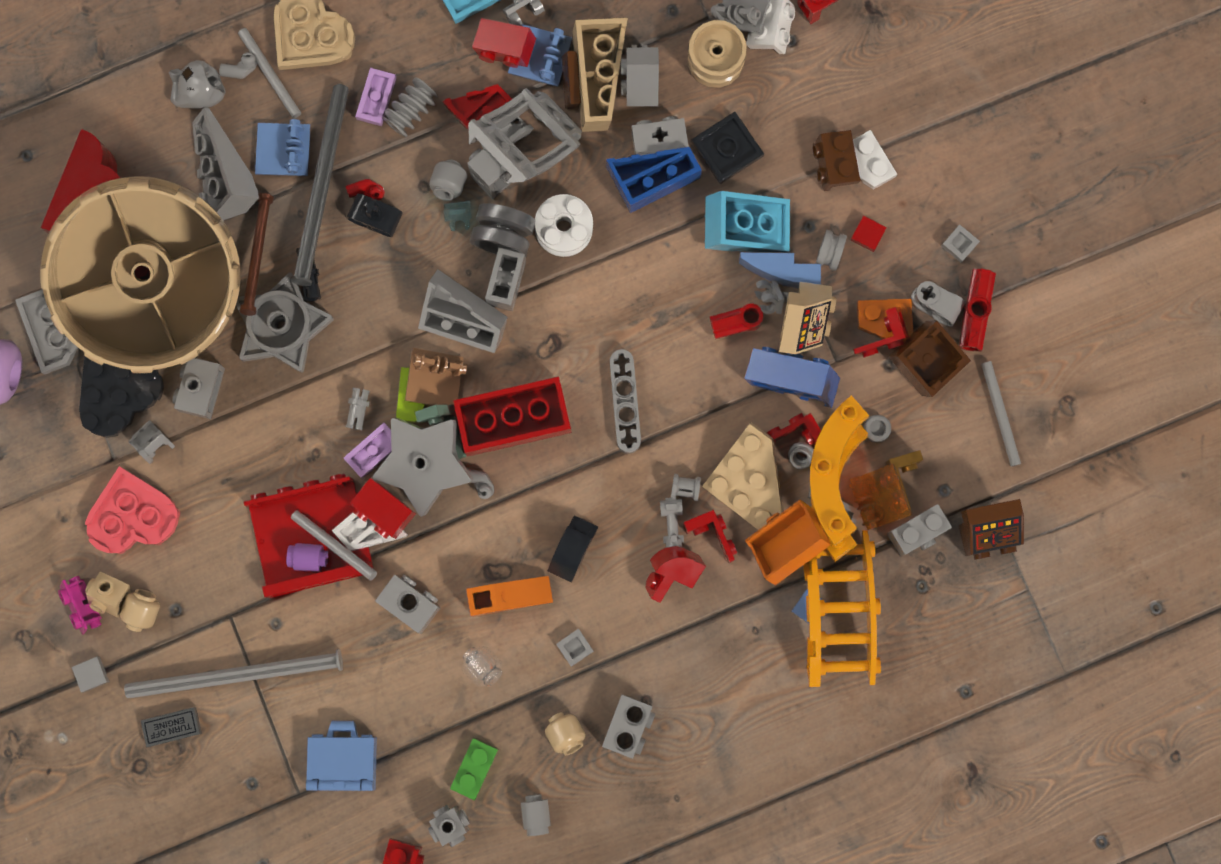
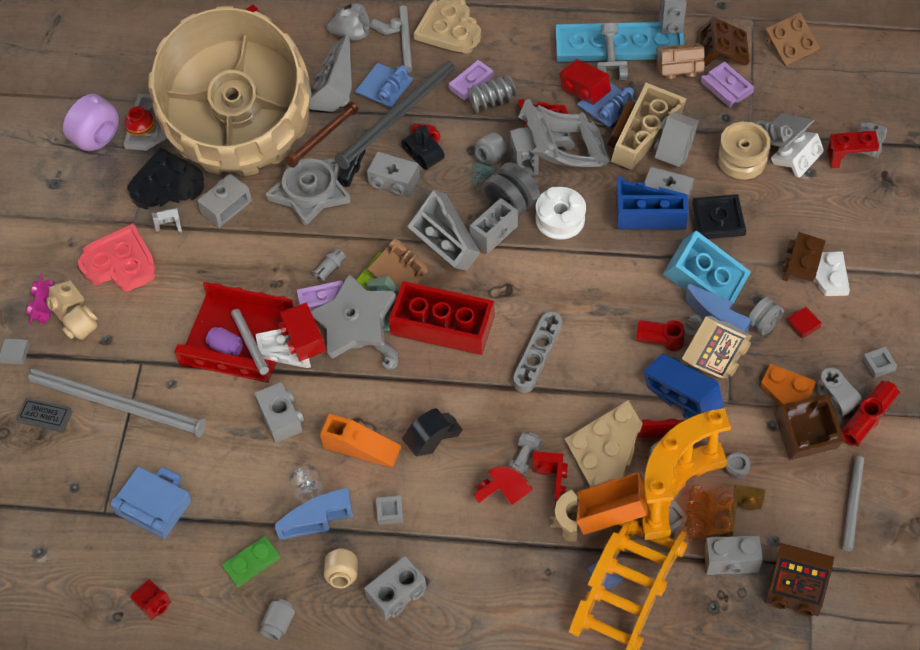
camera: 30 degrees right, 25 degrees down
(42, 338) = (139, 121): none -> red piece
(349, 259) = (393, 174): none -> light grey brick
(457, 818) = (202, 590): light grey brick -> none
(510, 691) = (314, 515): none -> medium blue slope
(686, 487) = (559, 433): light grey bush -> none
(741, 572) = (565, 505): none -> tan piece
(894, 323) = (791, 392): red bracket -> none

